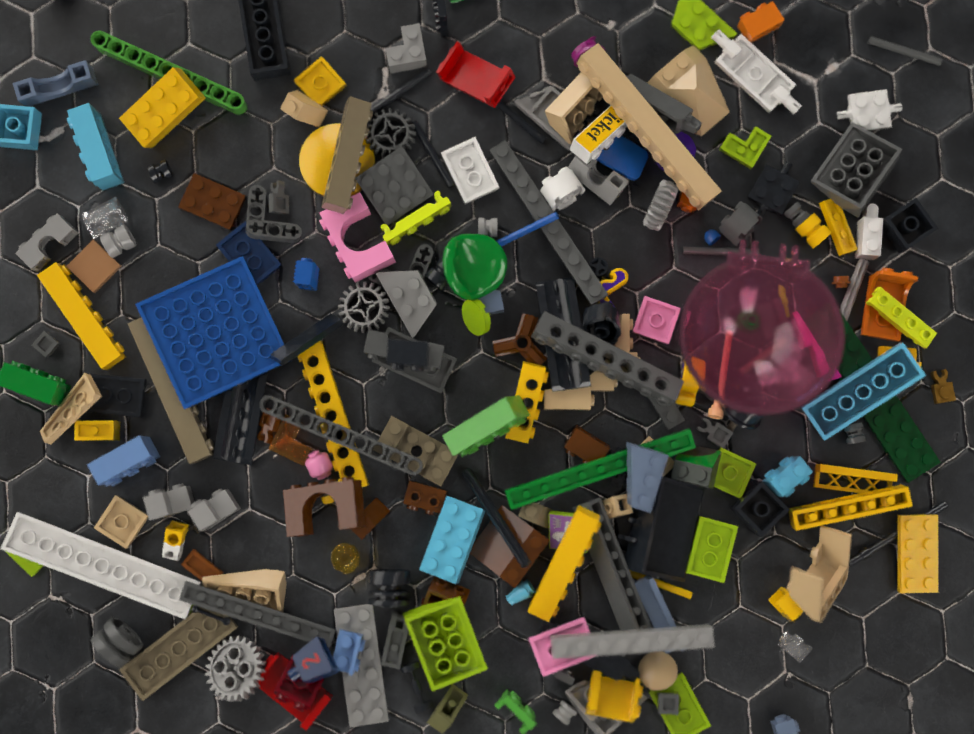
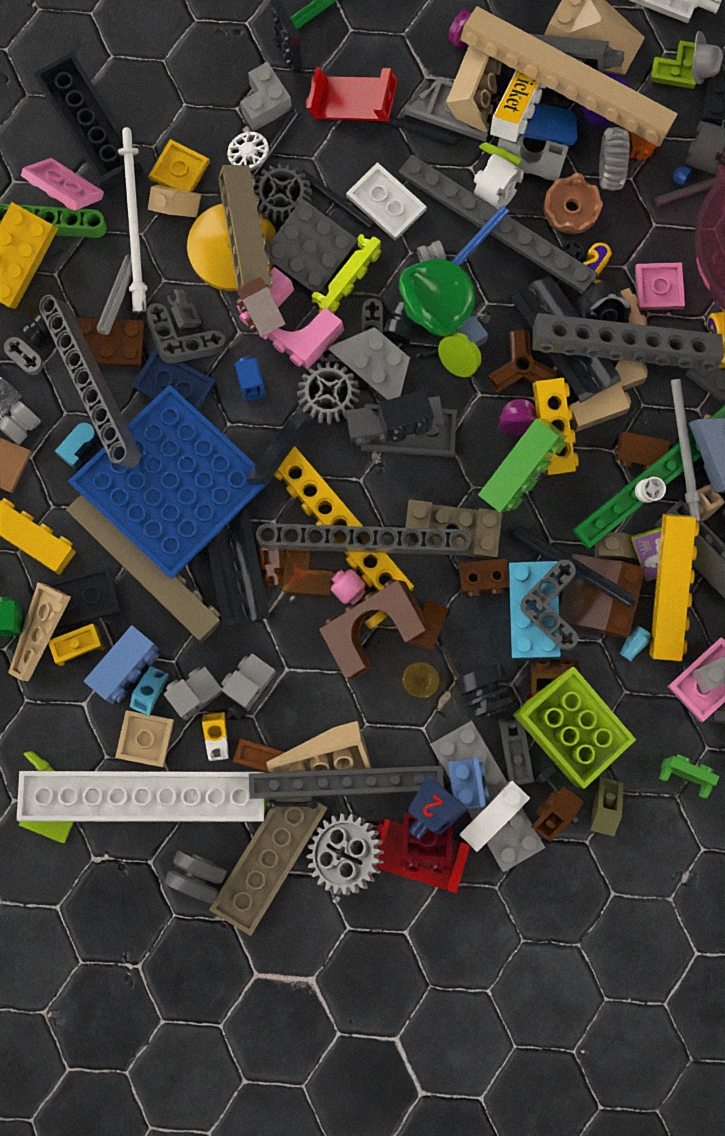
camera: 20 degrees left, 5 degrees down
(38, 510) = (40, 764): none -> lime piece
(138, 486) = (148, 690): none -> medium azure leg
(146, 186) = (20, 359): none -> light grey beam
(156, 274) = (76, 443): none -> medium azure leg
(181, 231) = (89, 382): none -> dark grey beam
(222, 63) = (62, 184): none -> bright pink plate
(234, 164) = (116, 296): none -> light grey axle
(250, 167) = (137, 287): none -> white bar
(331, 223) = (260, 307): none -> brick
(358, 684) = (494, 816): none -> white slope
(378, 88) = (248, 150): none -> white wheel
(405, 701) = (556, 813): none -> reddish brown brick
(457, 537) = (544, 600): none -> dark grey beam
(501, 384) = (517, 417): none -> magenta piece
(573, 167) = (491, 149): none -> lime piece
(574, 487) = (655, 488): none -> white wheel
(607, 499) = (692, 496): none -> light grey bar
(614, 215) = (573, 190): none -> nougat plate
(768, 150) = (706, 59): none -> light grey piece

